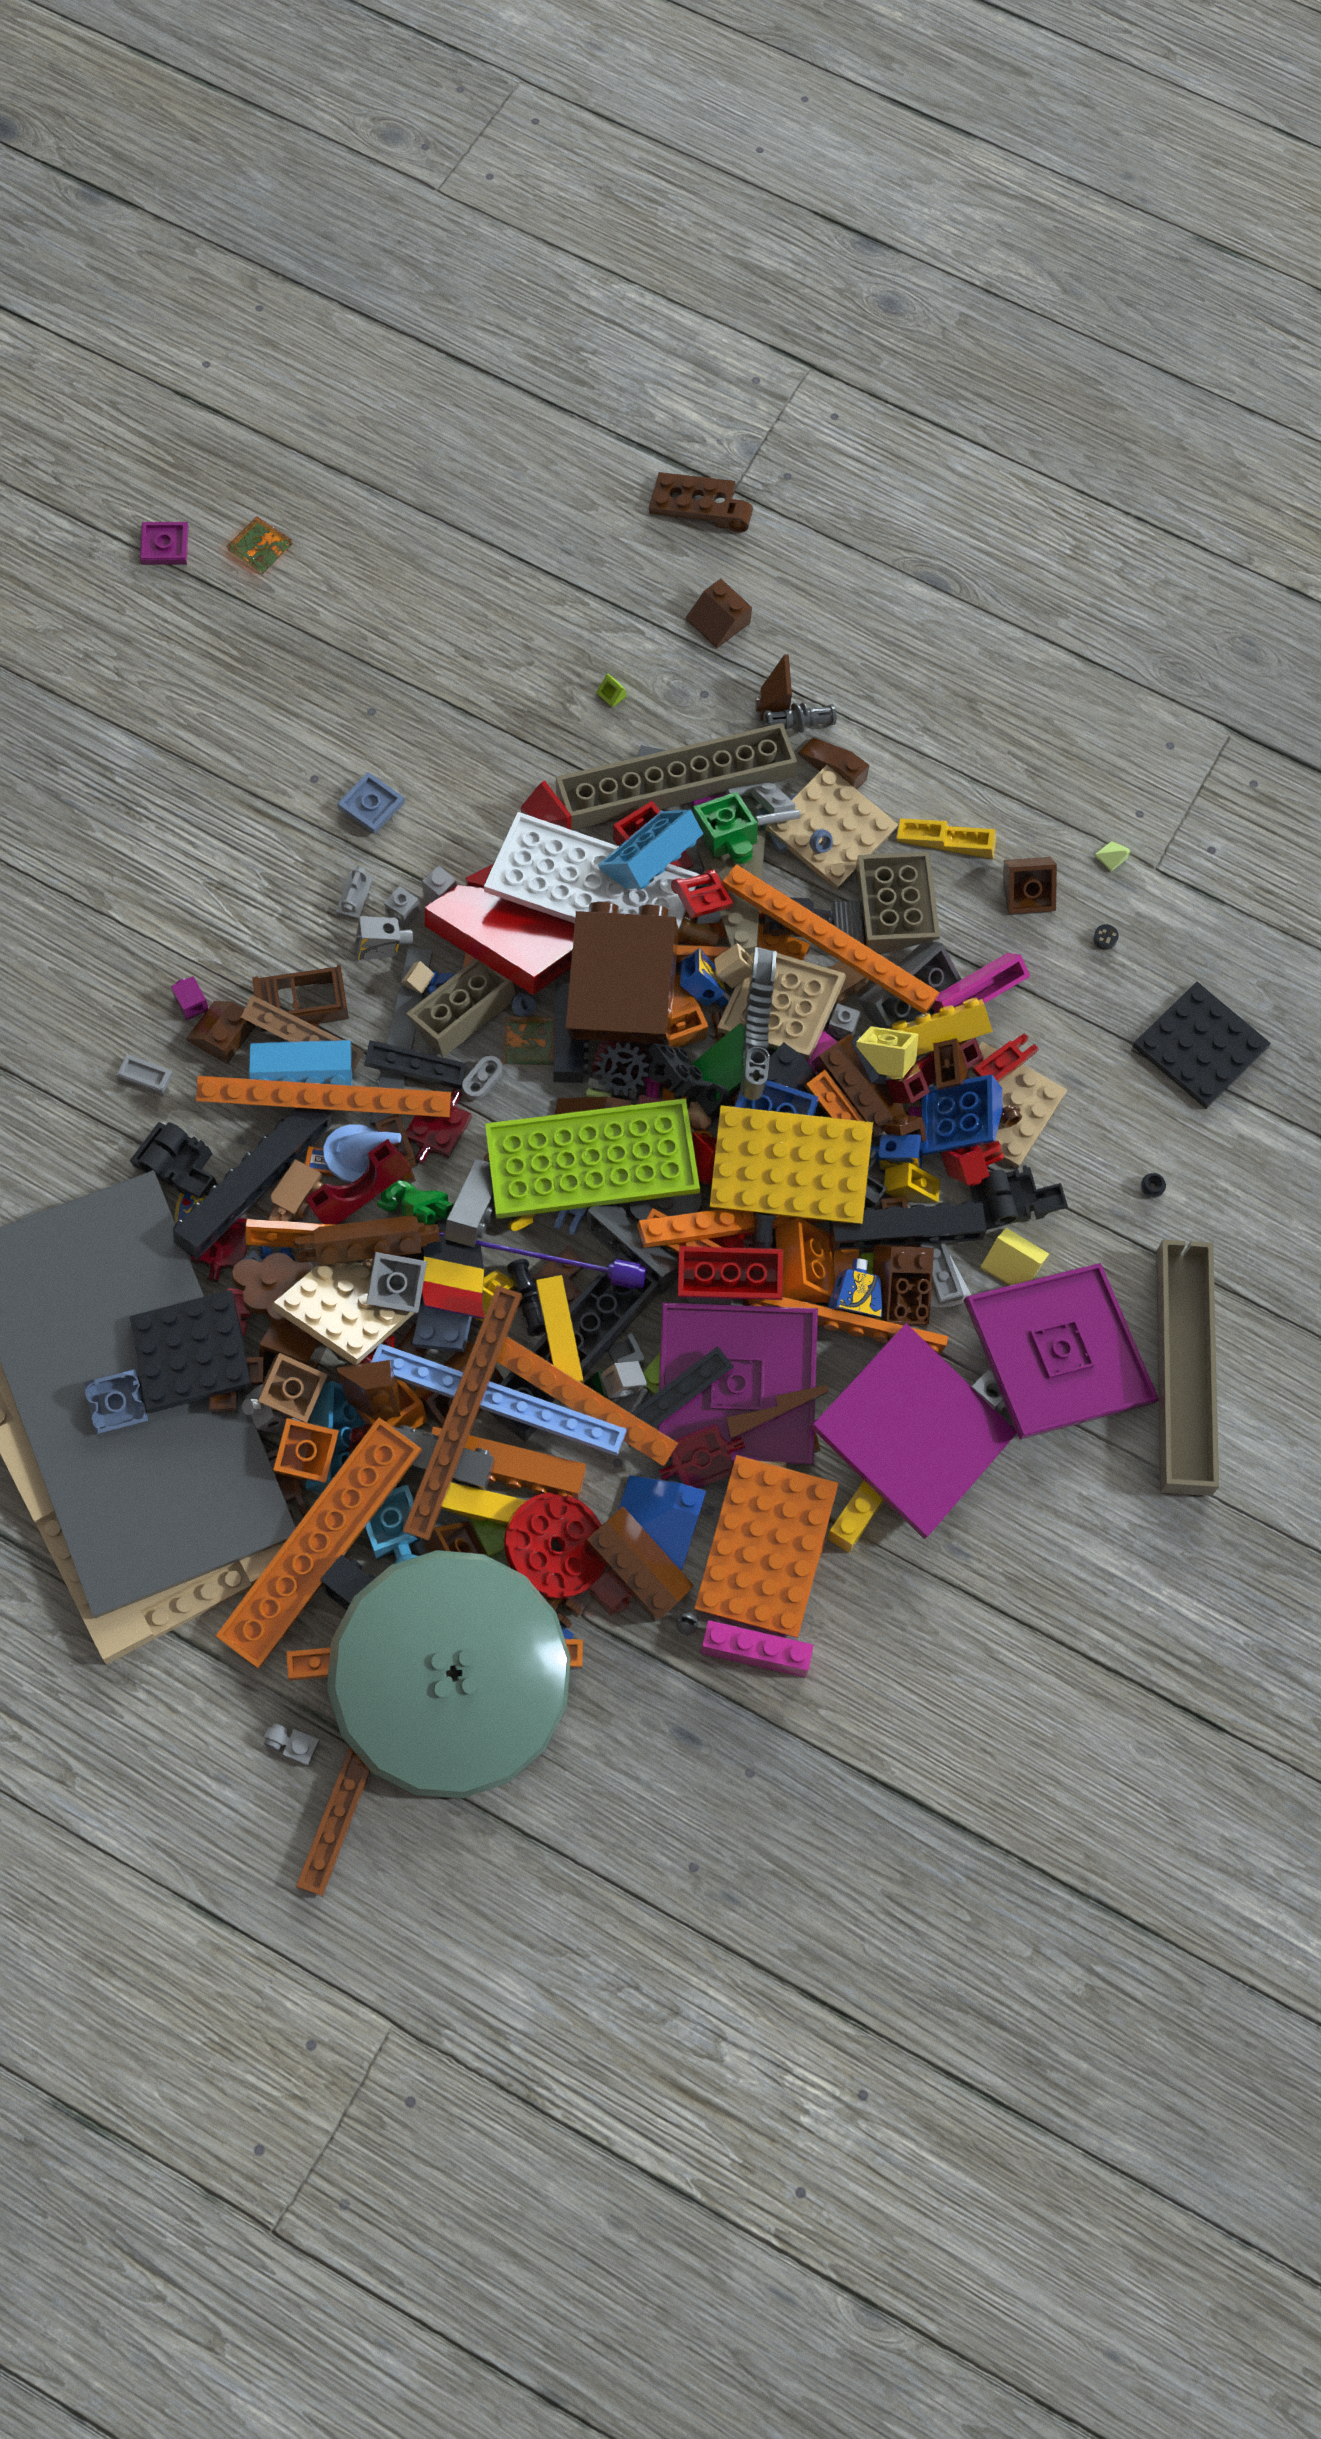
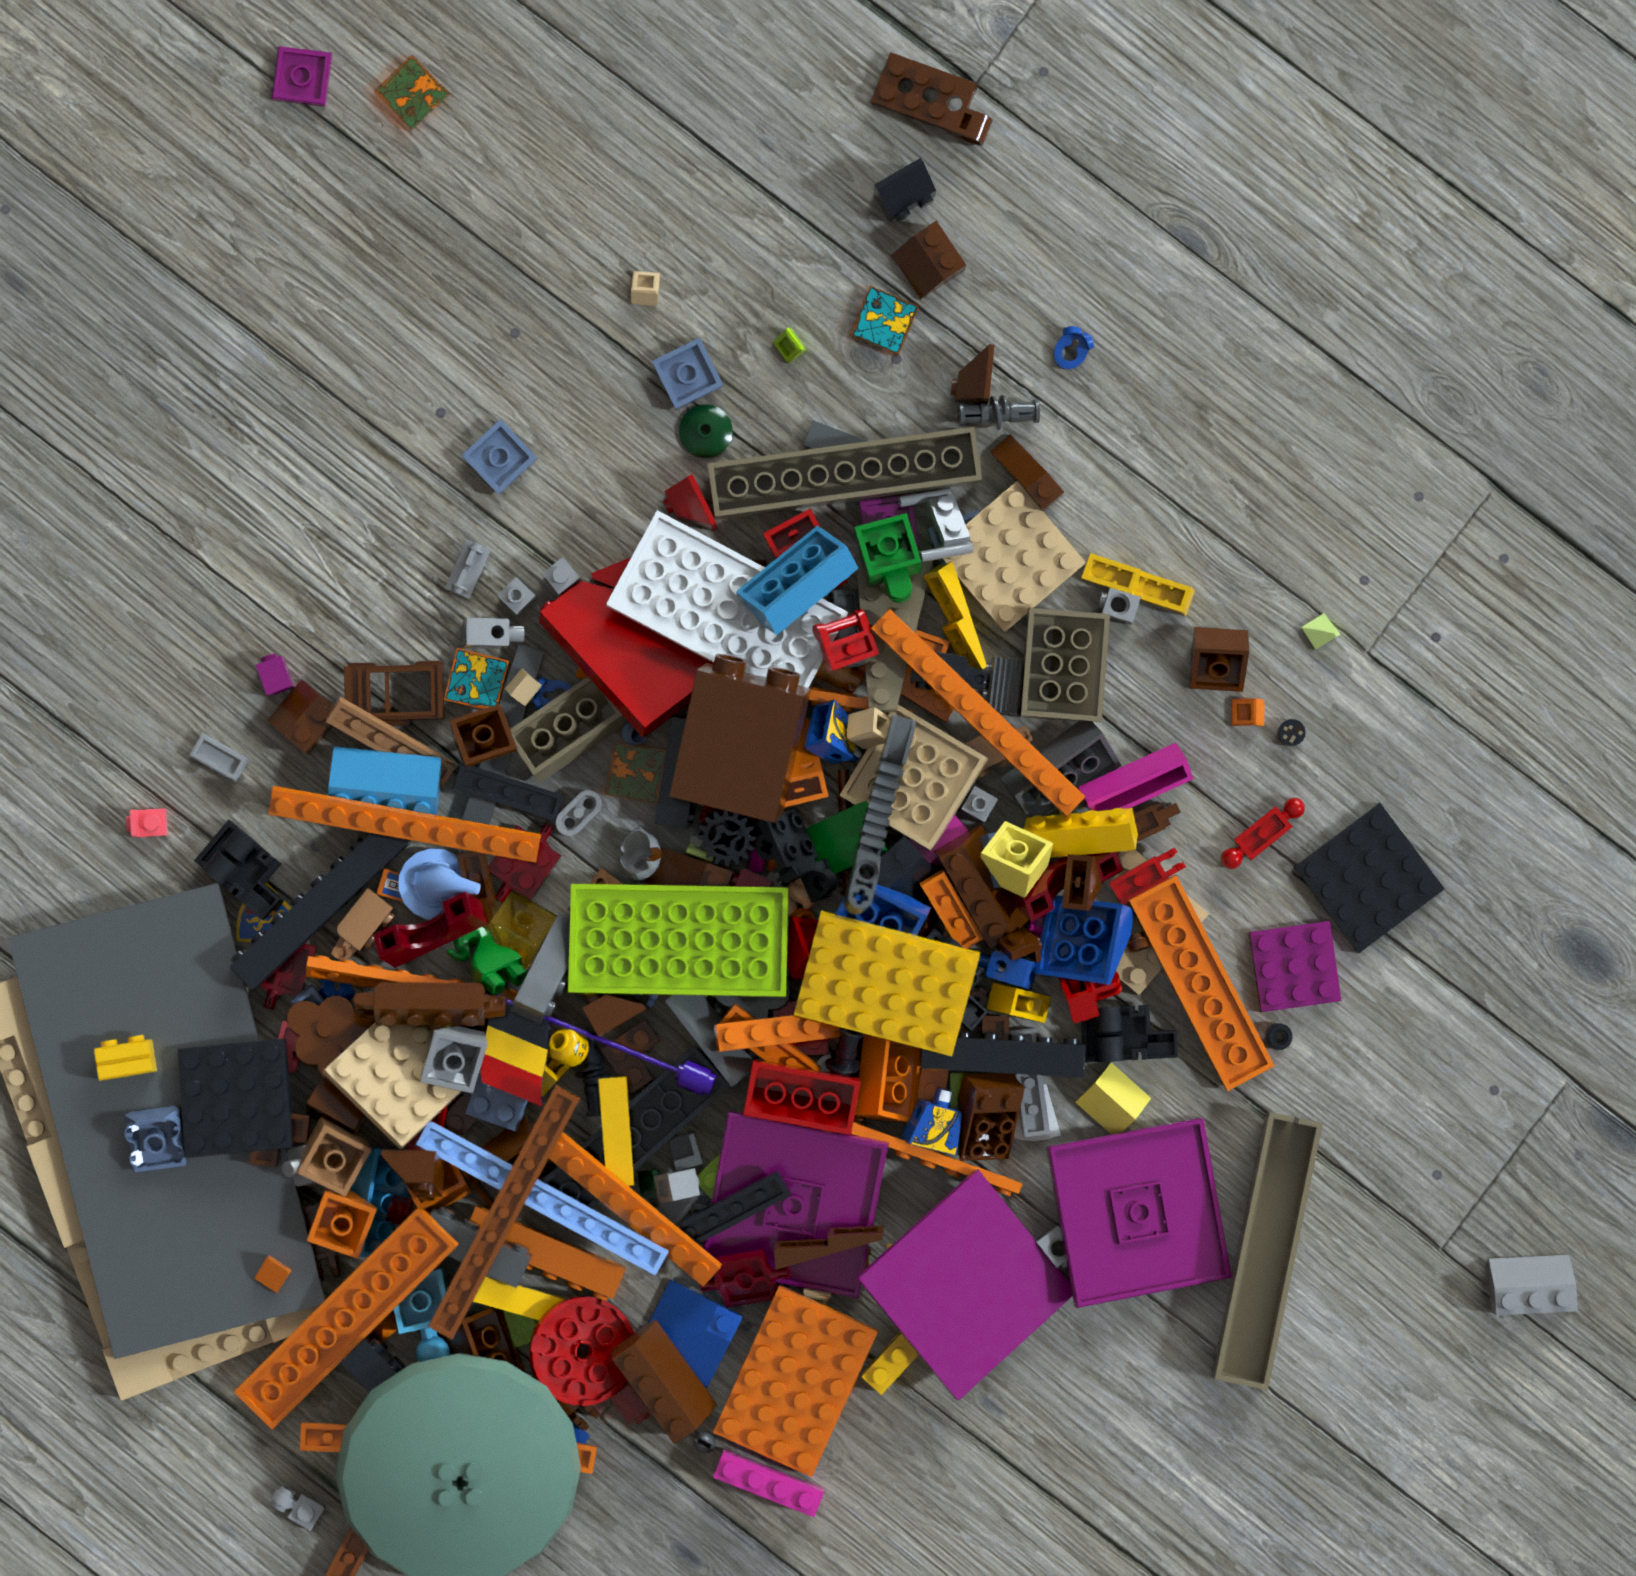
camera: 10 degrees right, 20 degrees up
(79, 1330) = (125, 1059): none -> yellow brick
(82, 1137) = (147, 823): none -> coral bracket
(243, 1510) = (273, 1274): none -> orange slope
(360, 1553) = (386, 1327): none -> orange slope
(373, 982) = (476, 679): none -> tile
(384, 1017) = (482, 735): none -> reddish brown slope
(442, 1175) = (522, 926): none -> clear yellow slope
(480, 665) = (645, 288): none -> tan slope
(502, 1267) = (568, 1047): none -> yellow head
(526, 721) = (687, 373): none -> sand blue plate
(539, 770) = (705, 445): none -> dark green dish
(540, 1233) = (610, 1011): none -> reddish brown slope
(543, 1099) = (640, 854): none -> light grey hair
(688, 665) = (884, 320): none -> tile
(689, 562) = (905, 191): none -> black slope
(788, 864) = (960, 629): none -> yellow slope
(826, 843) = (992, 583): sand blue plate -> none
(849, 656) = (1085, 344): none -> blue piece
(939, 845) = (1131, 604): none -> light grey brick
(1001, 1020) = (1154, 819): none -> reddish brown hinge
(1064, 925) = (1248, 712): none -> orange slope
(1075, 1144) = (1201, 983): none -> orange plate
(1099, 1018) = (1263, 833): none -> red plate
(1153, 1125) = (1295, 966): none -> magenta plate

